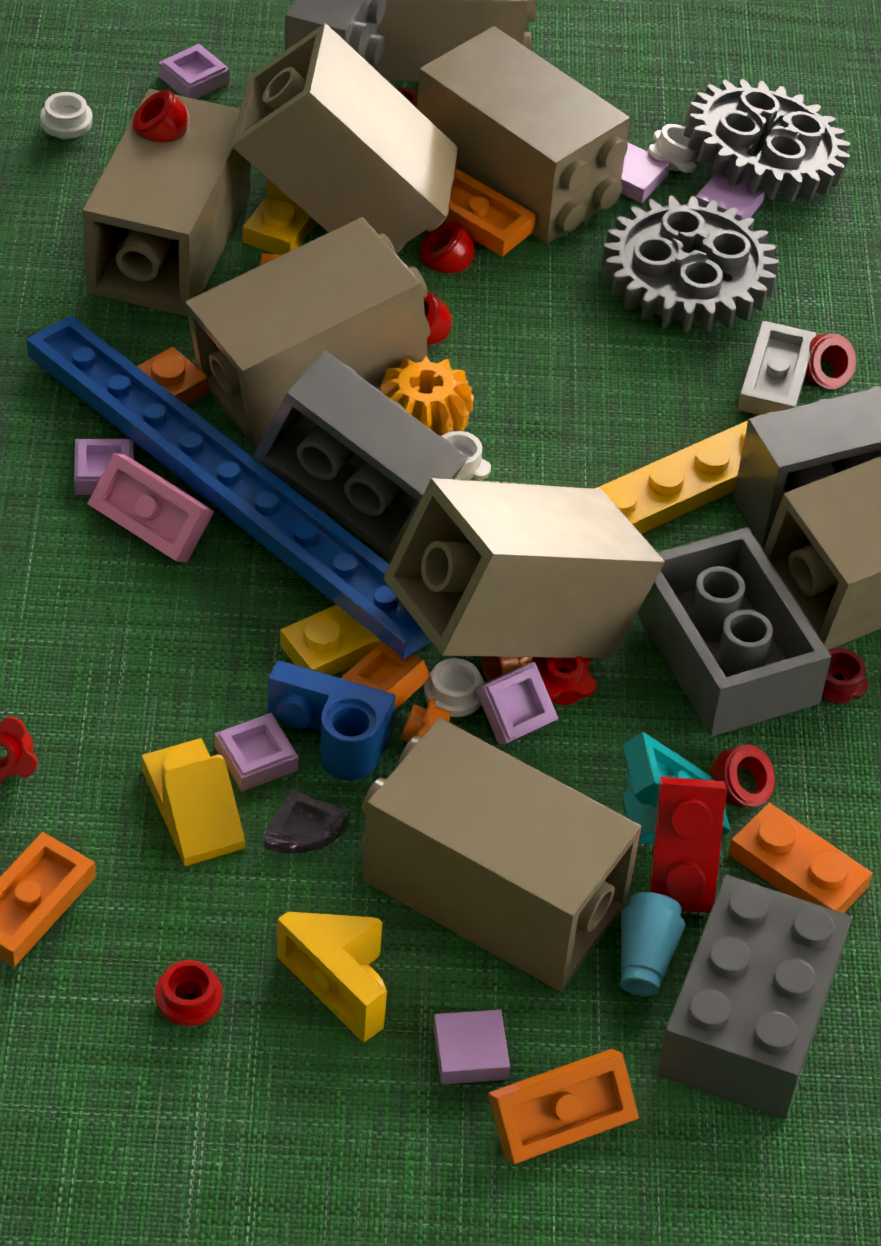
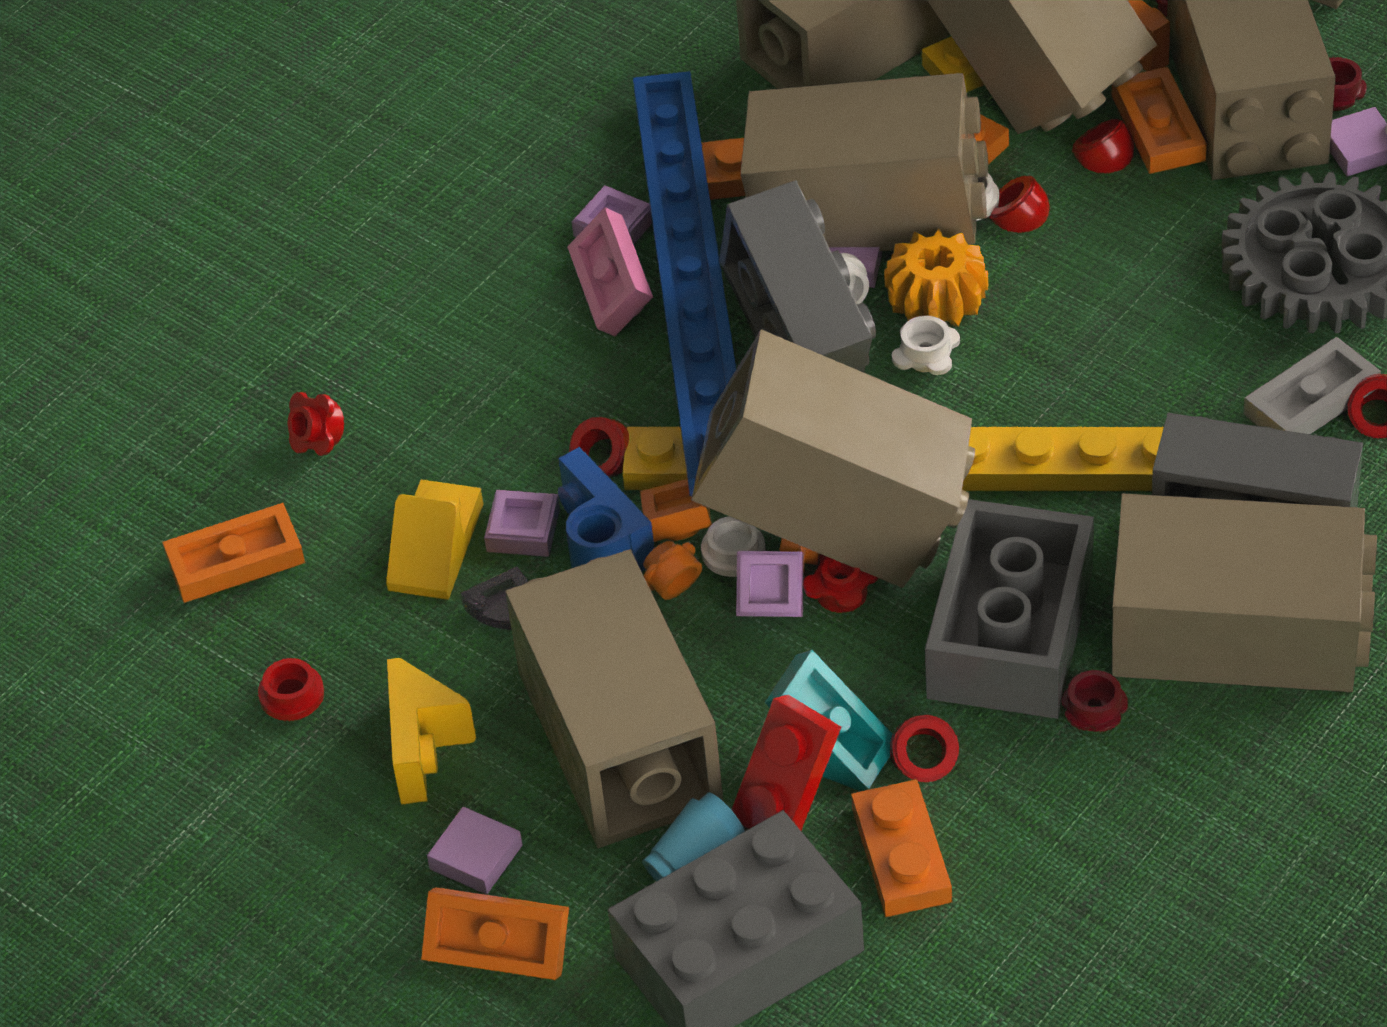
camera: 45 degrees right, 0 degrees up
(264, 639) = (602, 428): none -> red piece

